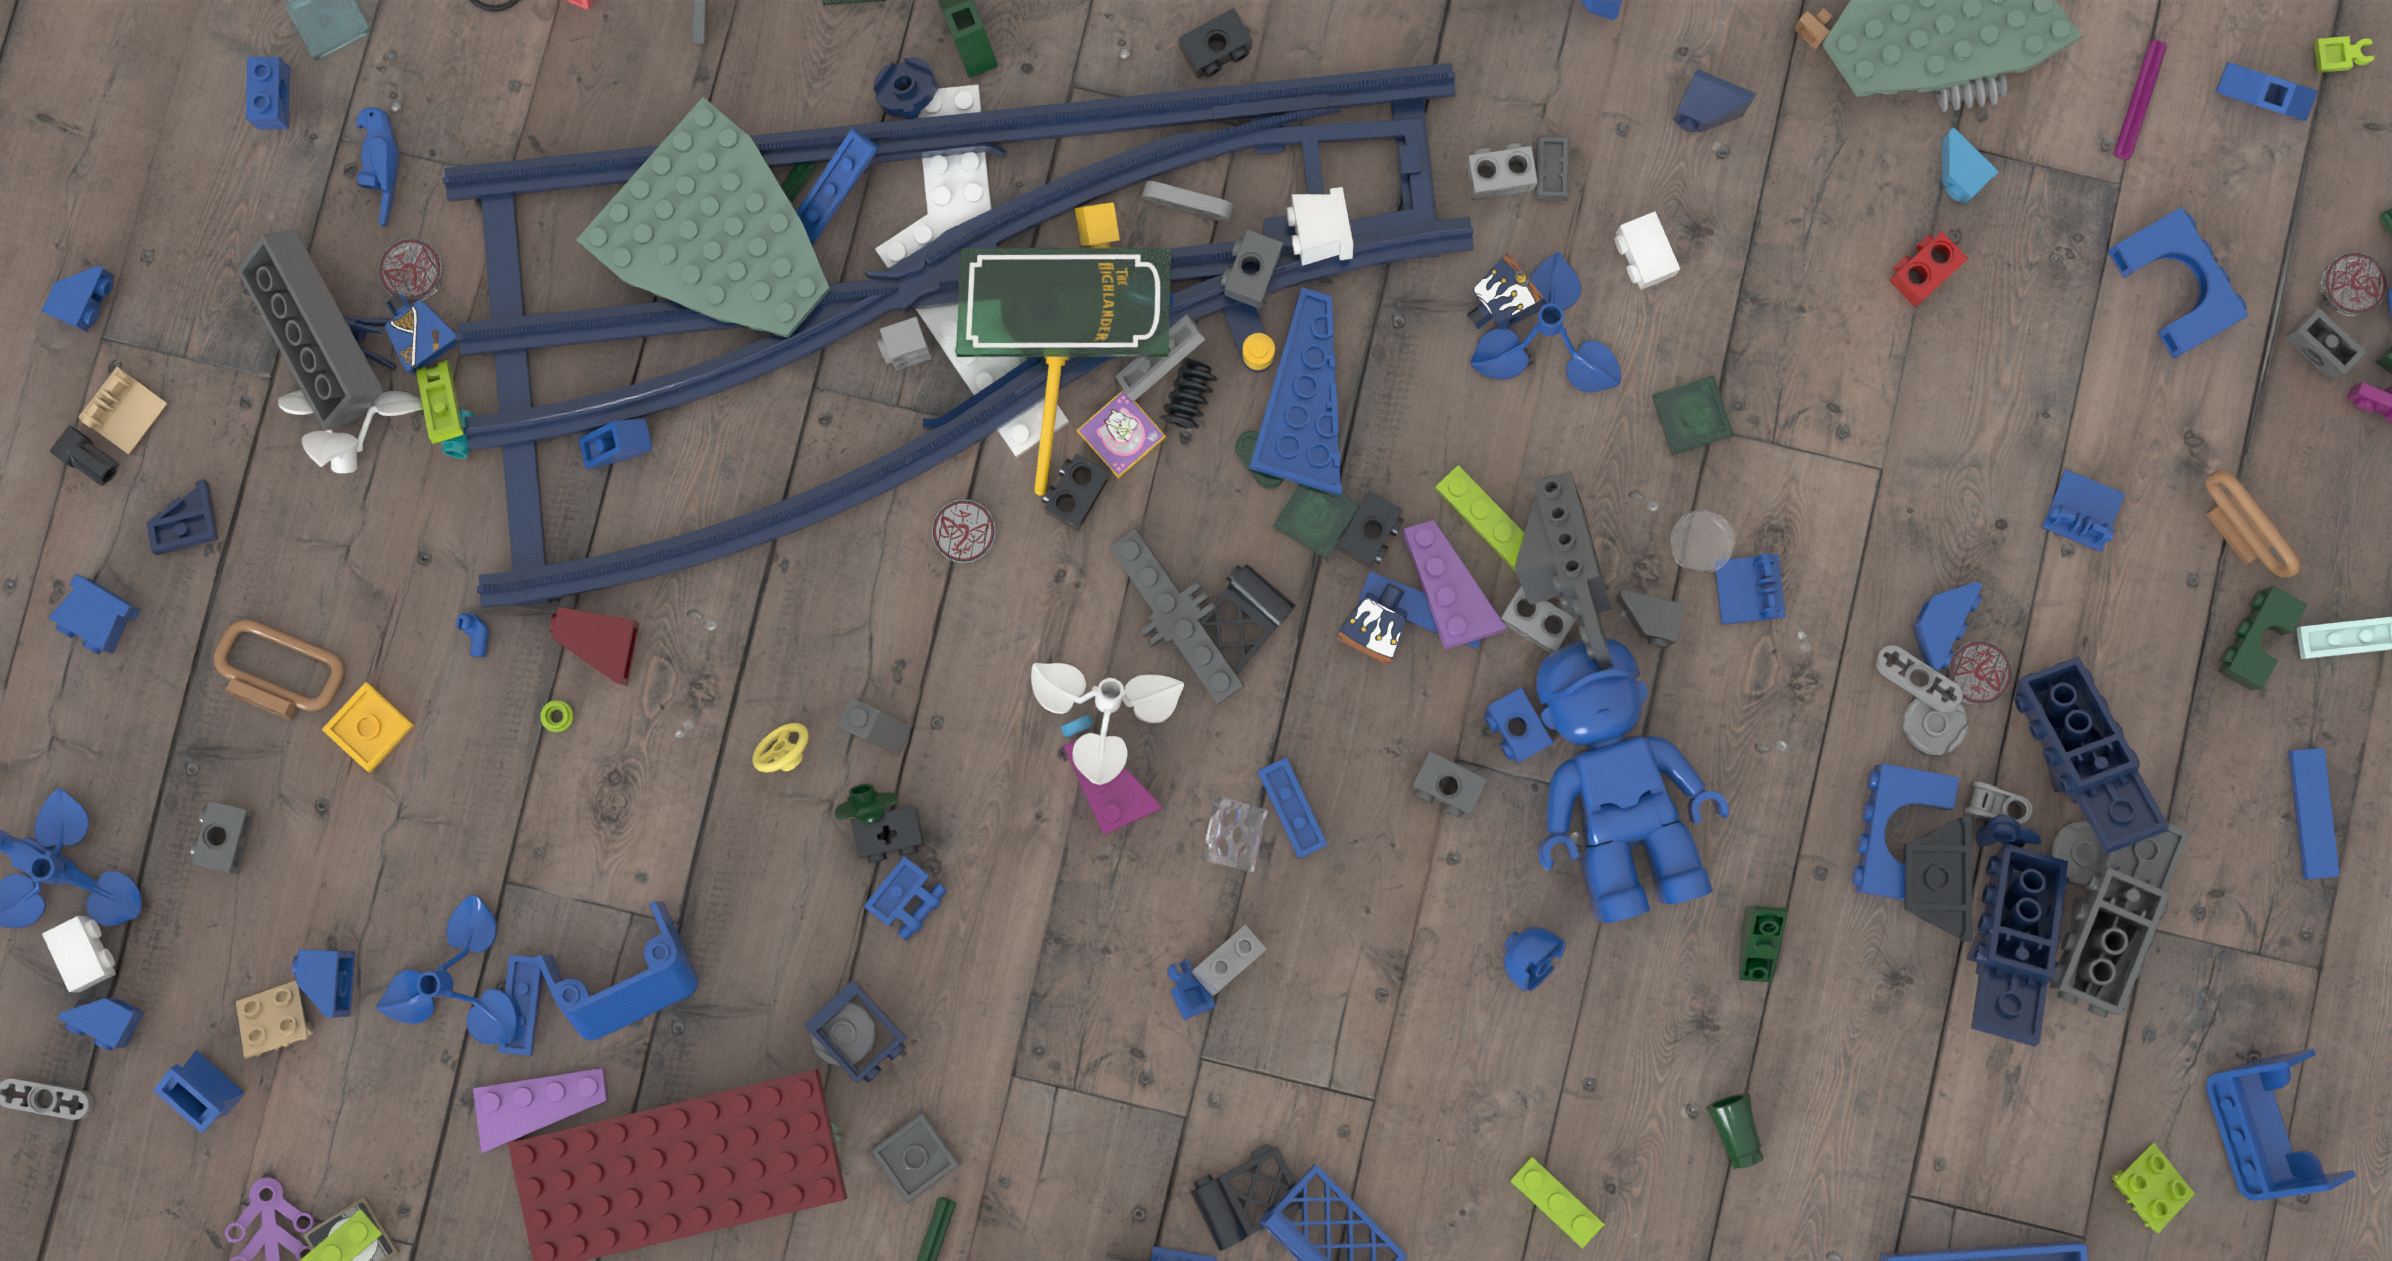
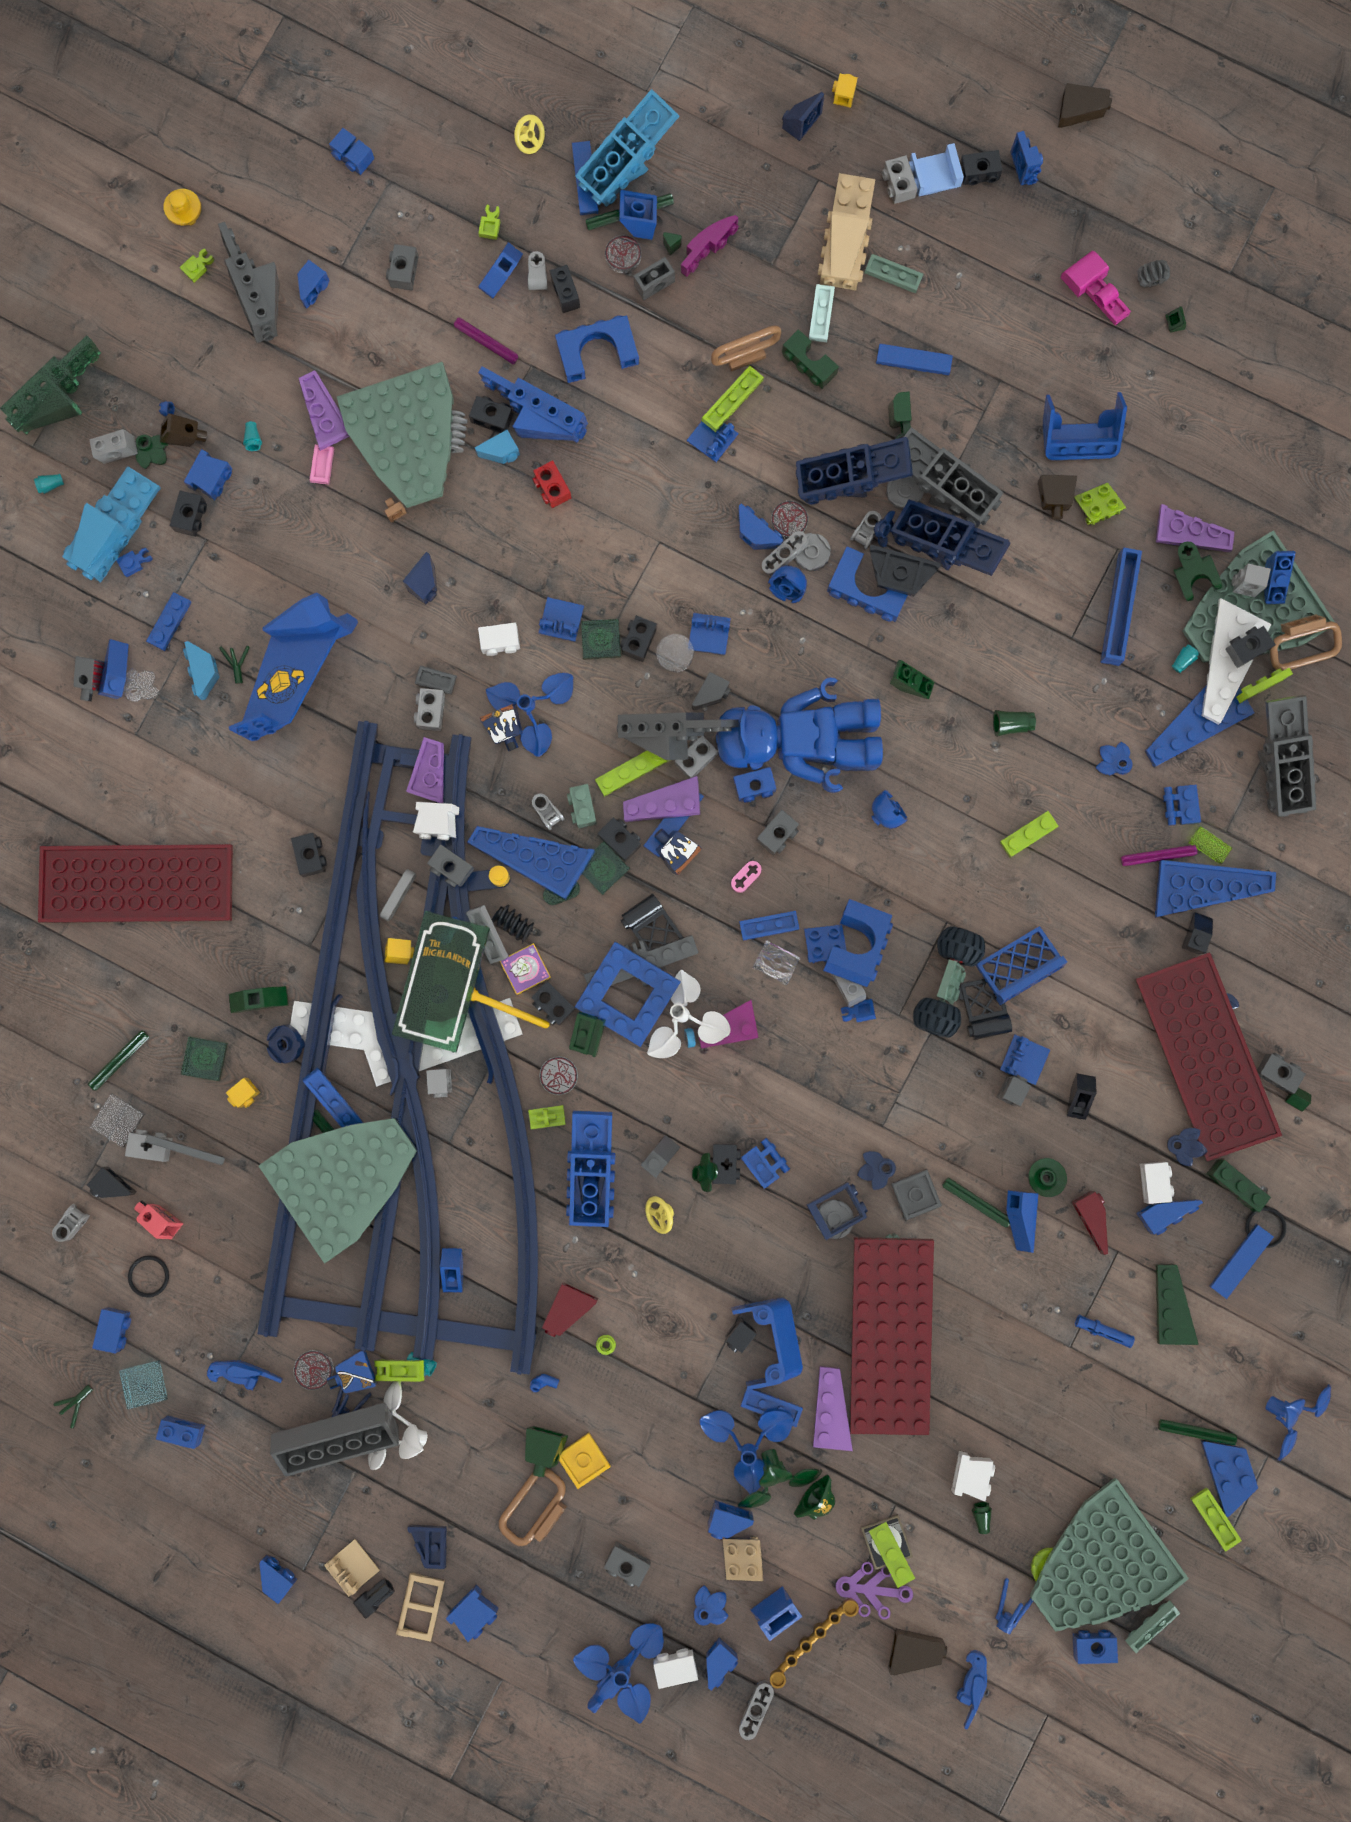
camera: 75 degrees left, 0 degrees up
(86, 511) = (407, 1604): none -> tan window
(191, 988) = (712, 1605): none -> blue plate
(233, 1205) = (849, 1608): none -> pearl gold bar
(371, 658) = (543, 1448): none -> dark green torso
(389, 1114) = (817, 1500): none -> dark green hat
(411, 1032) = (776, 1473): none -> dark green plant
(619, 925) = (740, 1335): none -> black brick
(812, 44) = (242, 1093): none -> yellow brick
(823, 618) = (590, 1169): none -> blue wedge
(892, 529) = (547, 1117): none -> lime hips
(939, 1077) = (873, 1169): none -> dark blue plate
(1040, 558) = (587, 1034): none -> dark green plate
(1155, 656) = (663, 989): none -> blue plate
(1258, 969) = (875, 926): none -> blue arch
(1286, 908) = (821, 940): none -> blue hinge
(1335, 1127) = (940, 1015): none -> black plate
(1367, 744) = (742, 873): none -> bright pink beam
(1384, 402) = (547, 812): none -> light grey piece
(1397, 194) = (428, 771): none -> medium lavender wing
(1408, 456) = (583, 806): none -> sand green brick
(1707, 342) = (561, 619): none -> blue hinge
(1710, 484) = (642, 639): none -> black brick
(1869, 697) = (788, 583): none -> blue cylinder
(2007, 155) = (498, 422): none -> black brick
(2040, 215) = (539, 412): none -> blue wedge
(2149, 1110) = (1057, 493): none -> dark brown torso
(2157, 526) = (732, 398): none -> lime plate
(2211, 811) = (900, 413): none -> dark green plate
(2265, 203) = (565, 288): none -> black brick
(2277, 152) = (537, 273): none -> light grey piece

